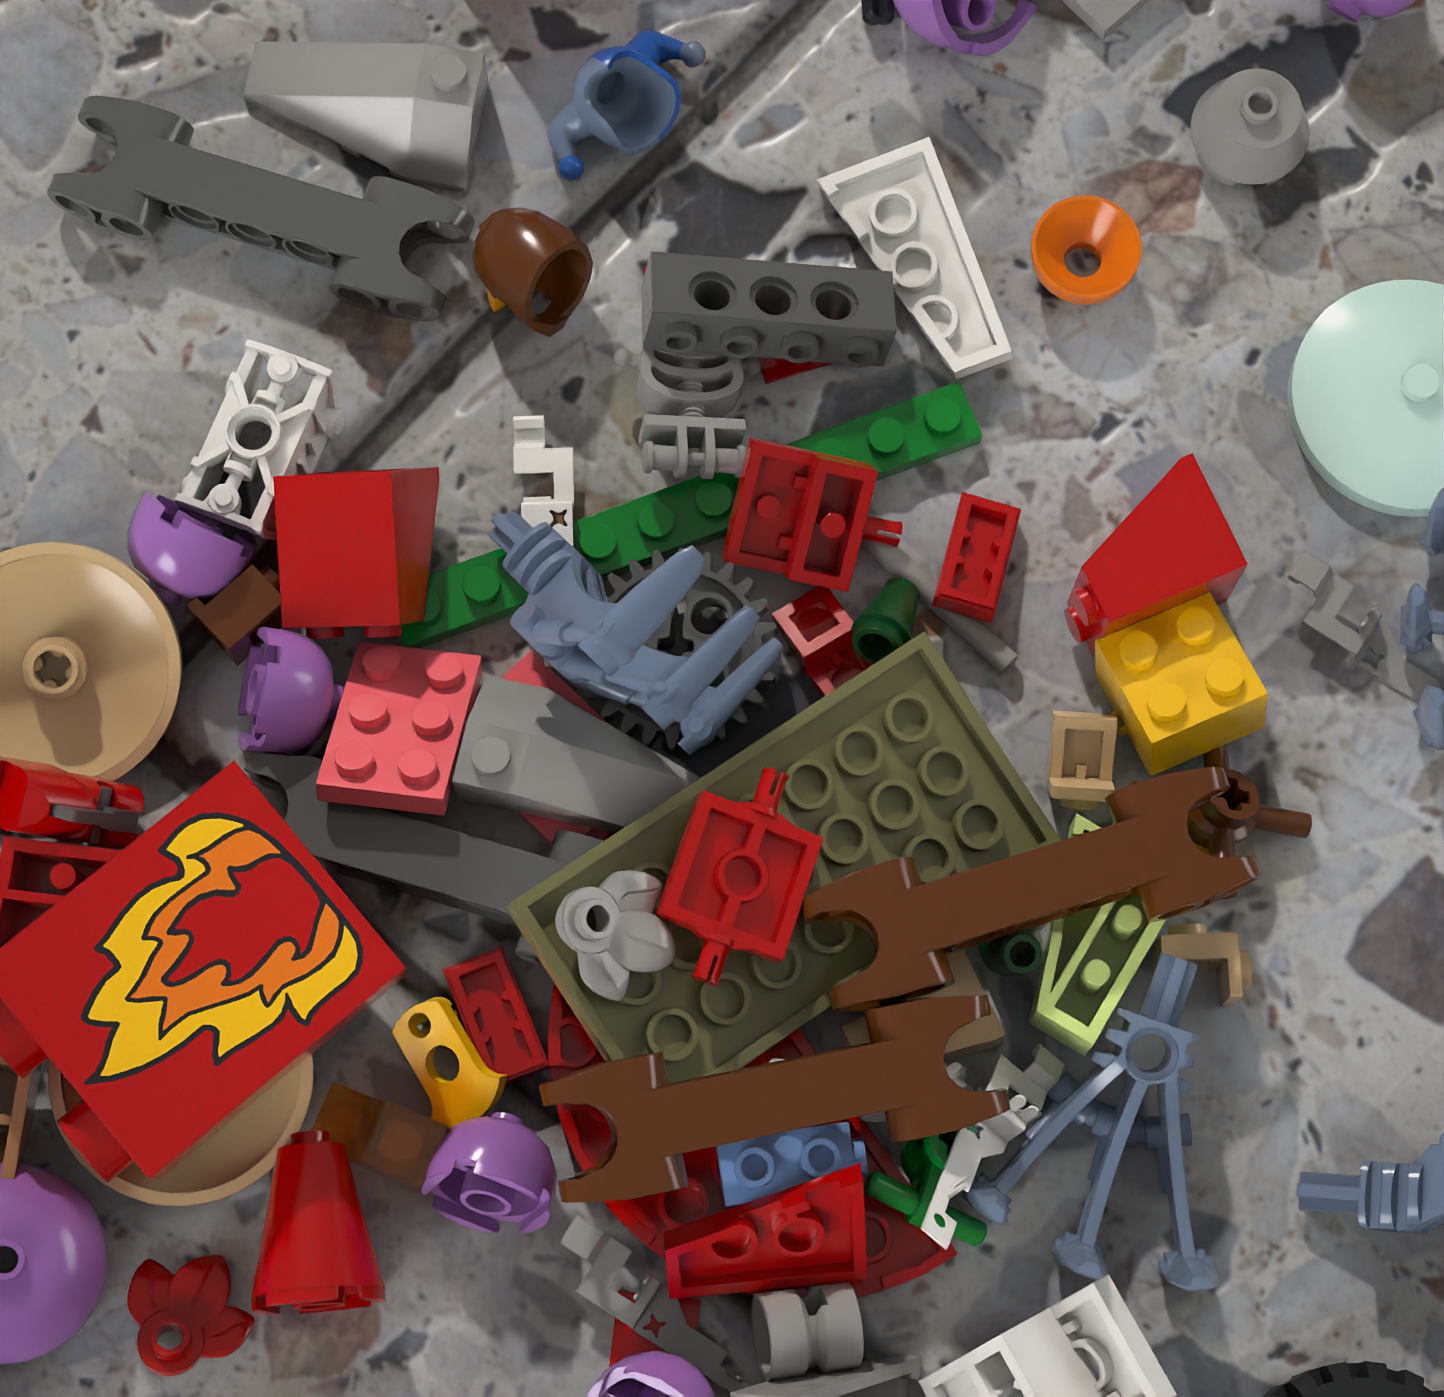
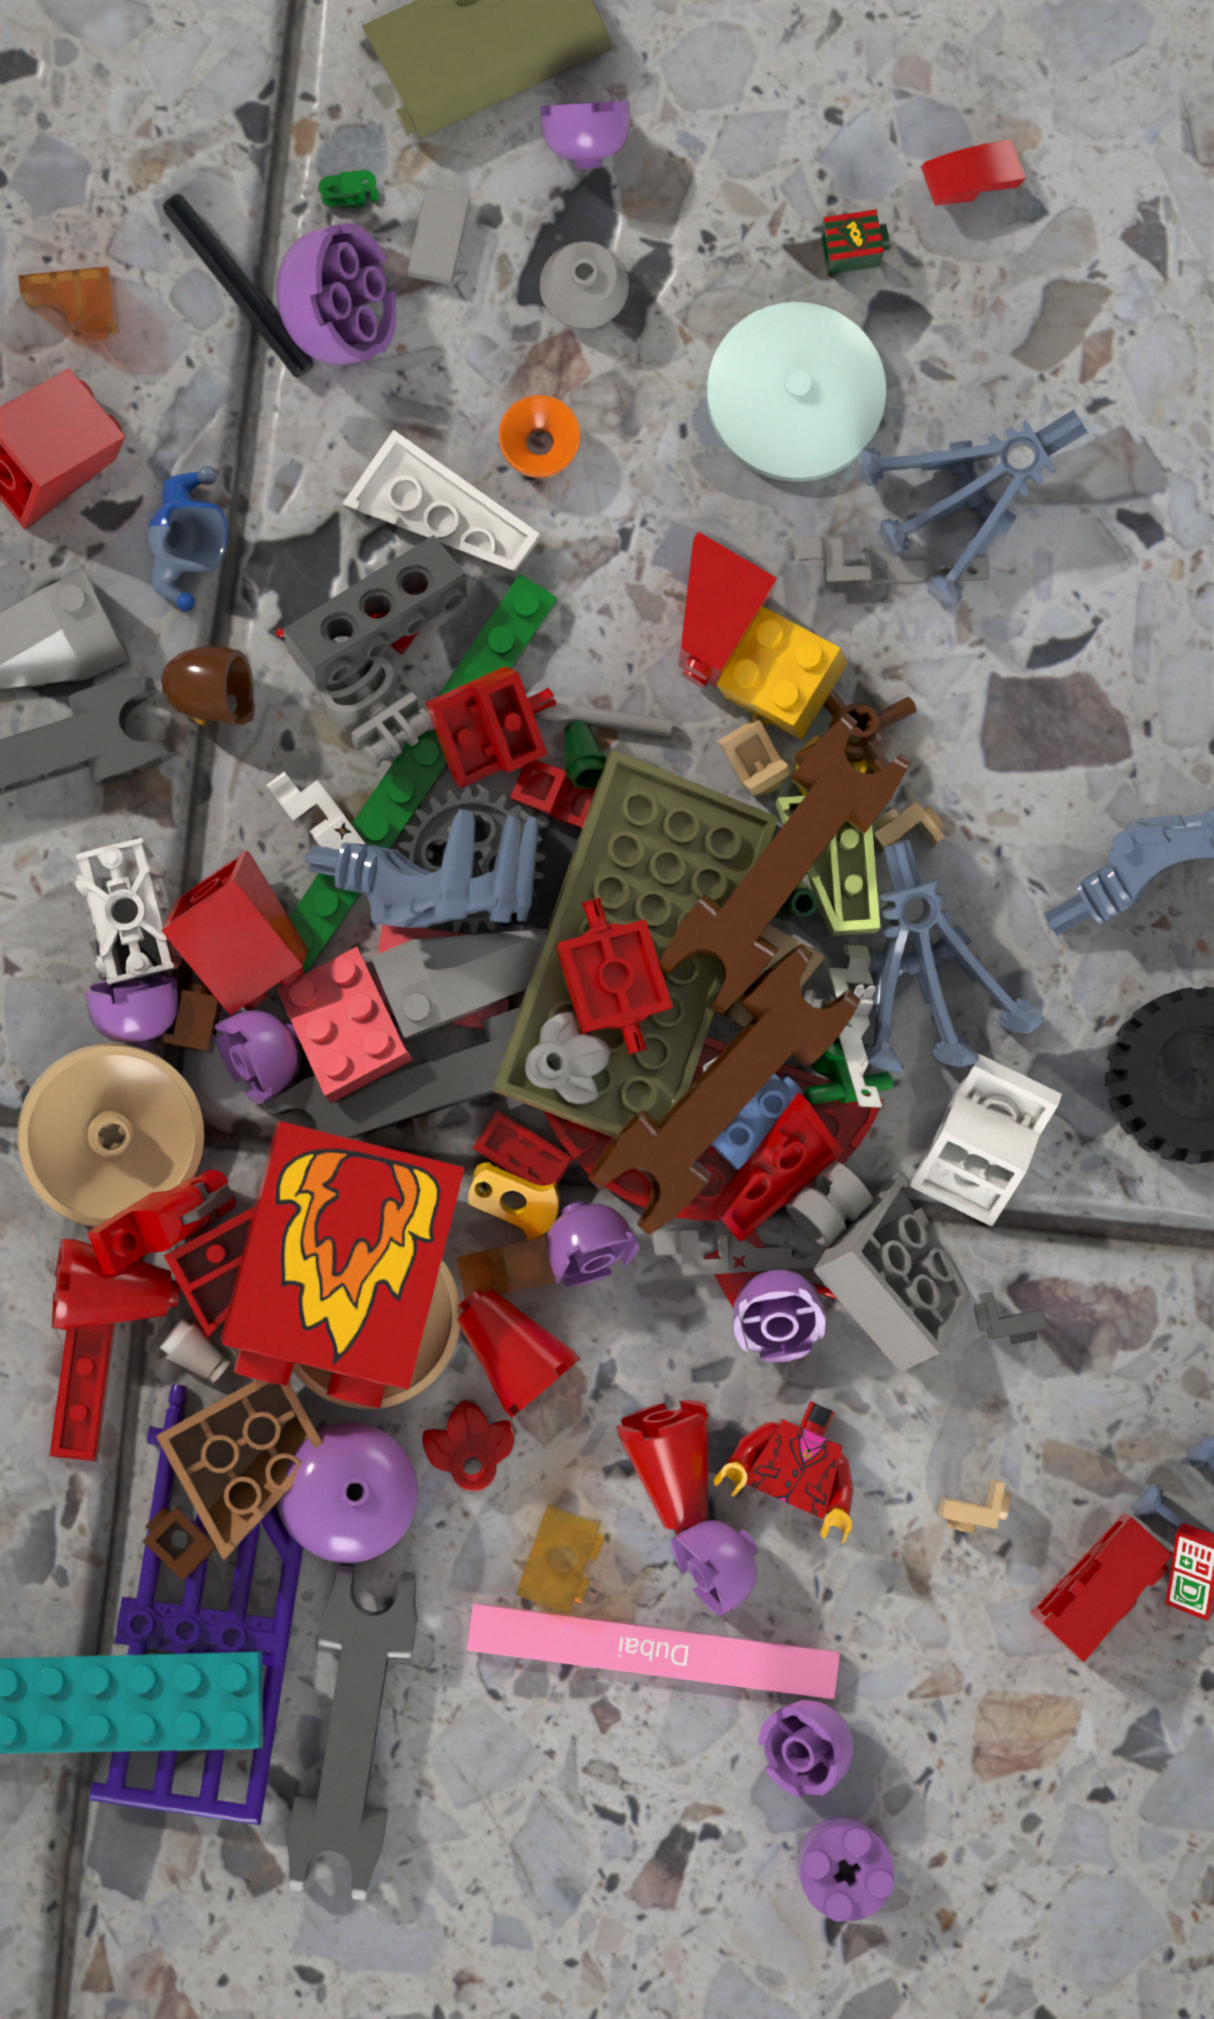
camera: 40 degrees left, 10 degrees up
(976, 557) = (607, 677): red plate -> none

